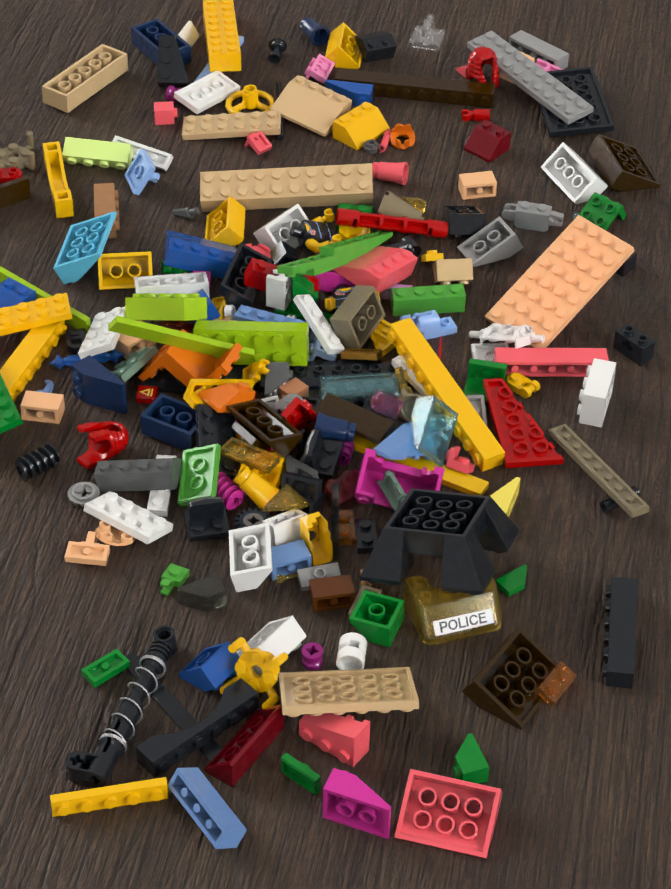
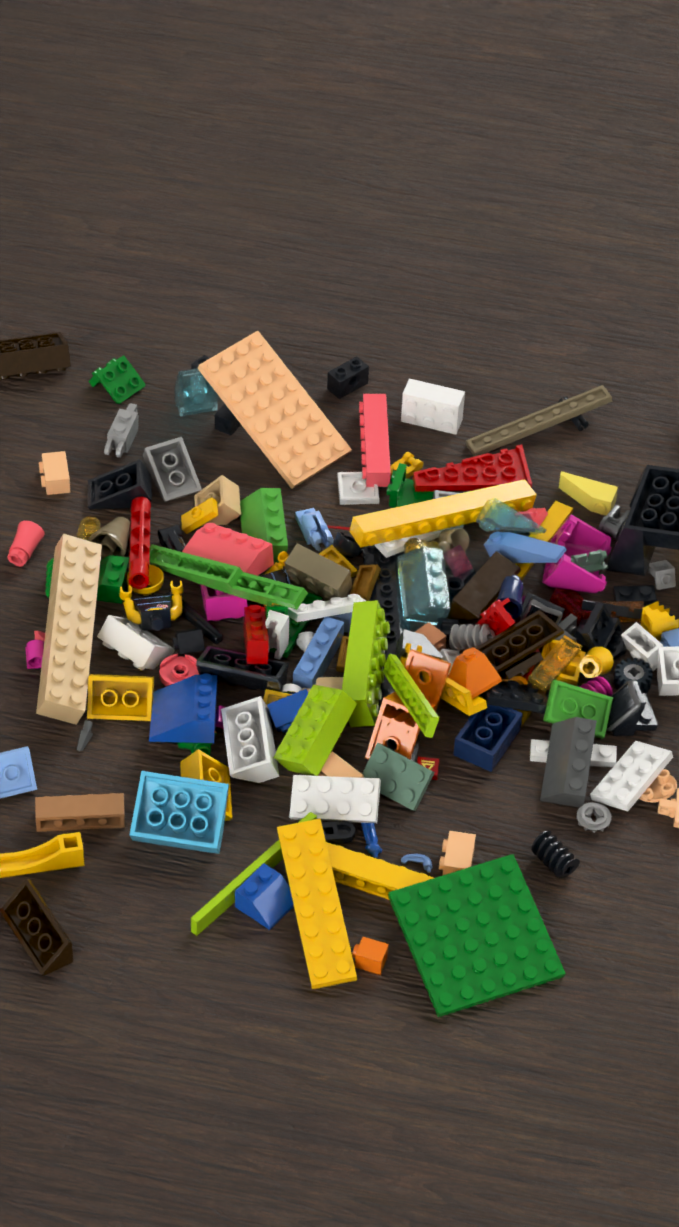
camera: 90 degrees left, 5 degrees up
(98, 385) = (429, 800): dark blue slope -> none
(105, 442) = (524, 794): red hair -> none
(286, 499) = (618, 640): clear yellow slope -> none
(521, 335) = (335, 477): white plate -> none
(573, 174) = (44, 394): white slope -> none

